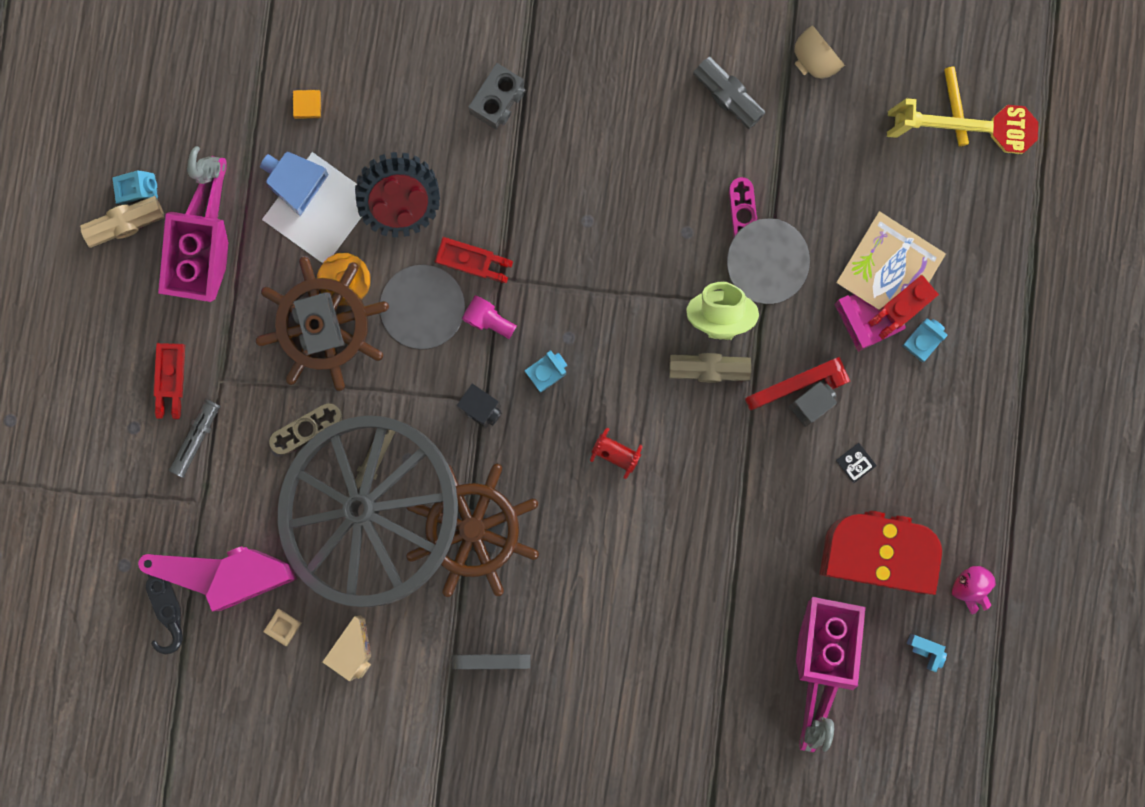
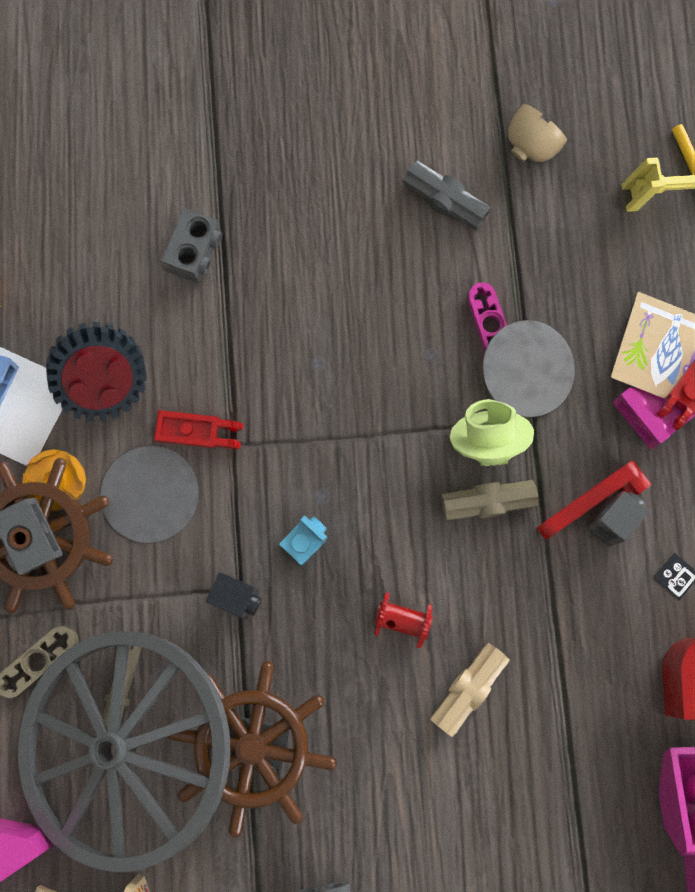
camera: 10 degrees left, 5 degrees down
(482, 315) = (219, 490): dark pink pin -> none
(660, 521) = (469, 689): none -> tan piece

